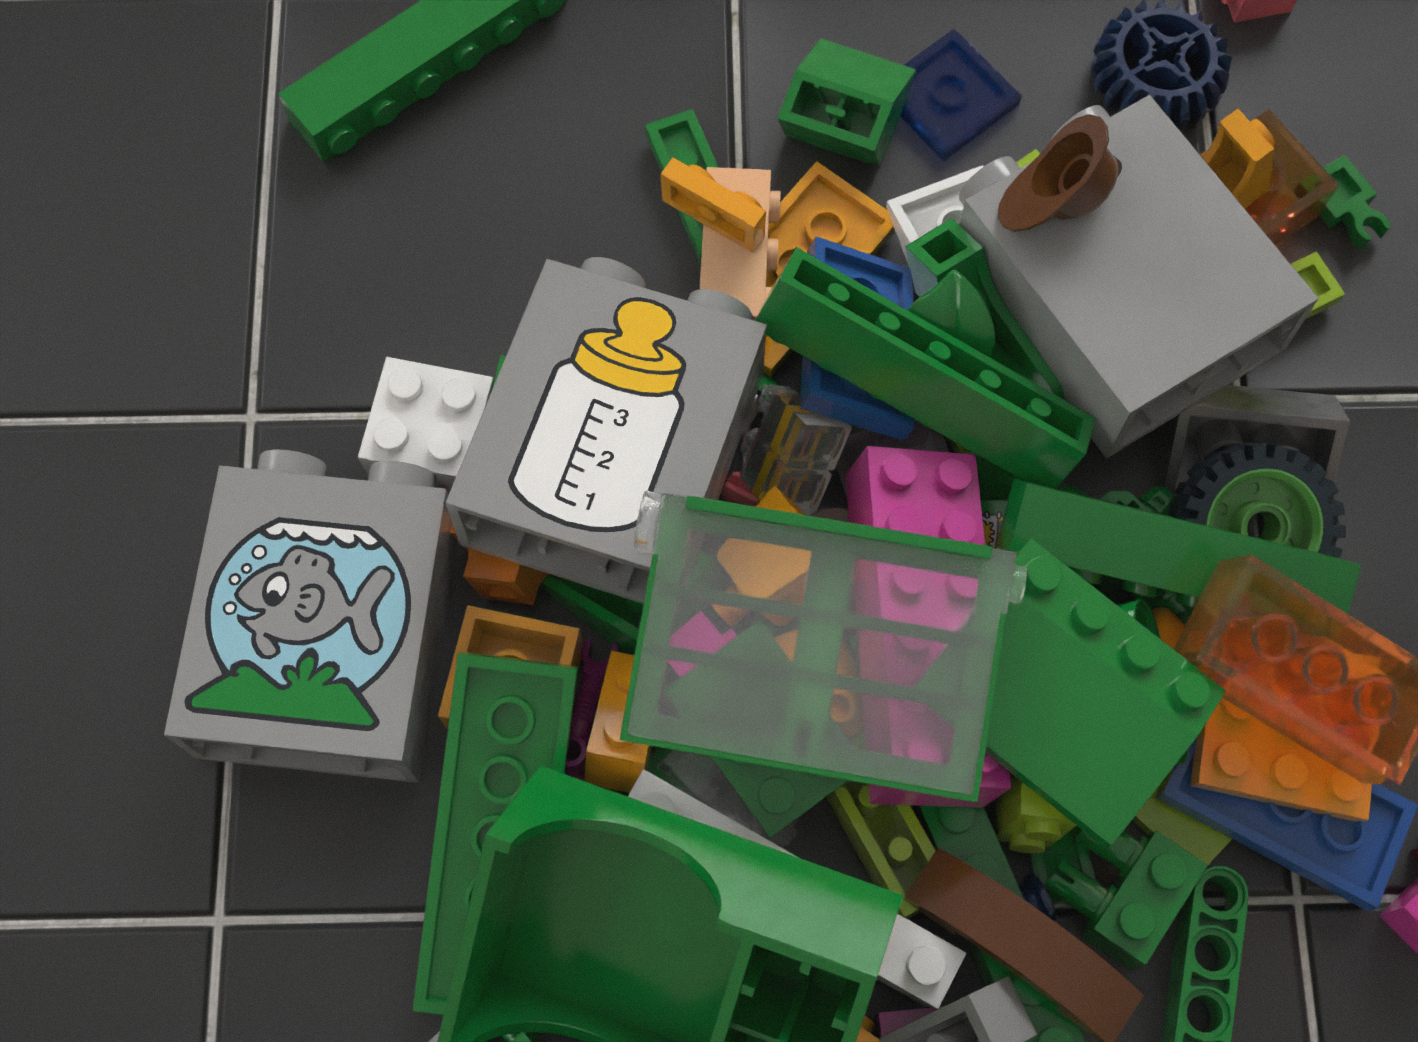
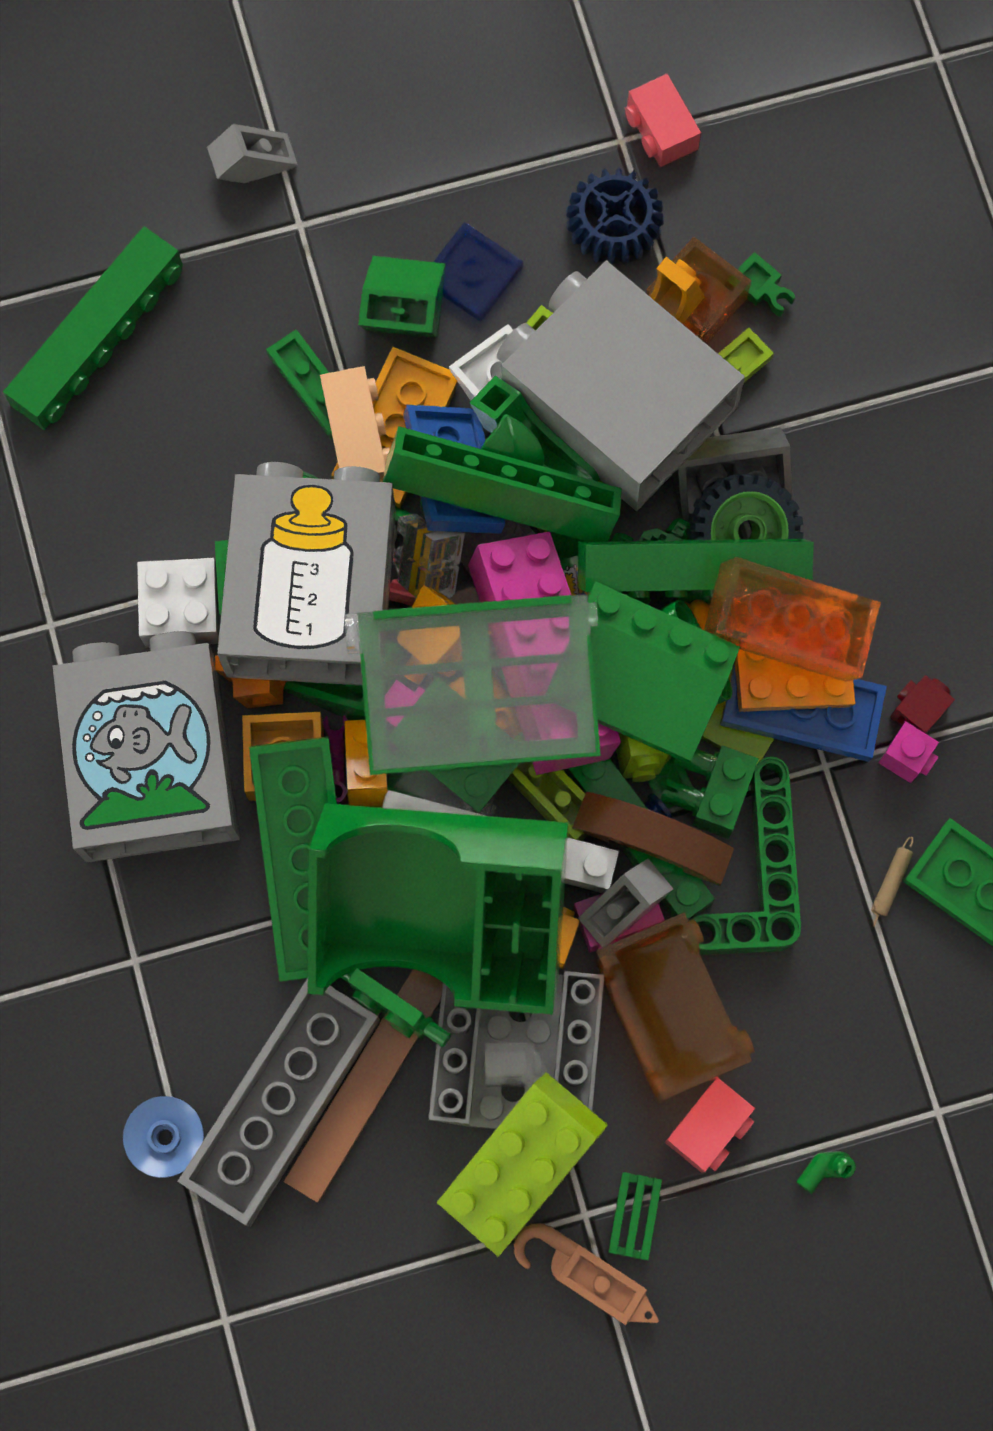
camera: 15 degrees left, 5 degrees up
(724, 211) = (346, 406): light orange plate -> none
(1065, 179) = (561, 339): reddish brown piece -> none

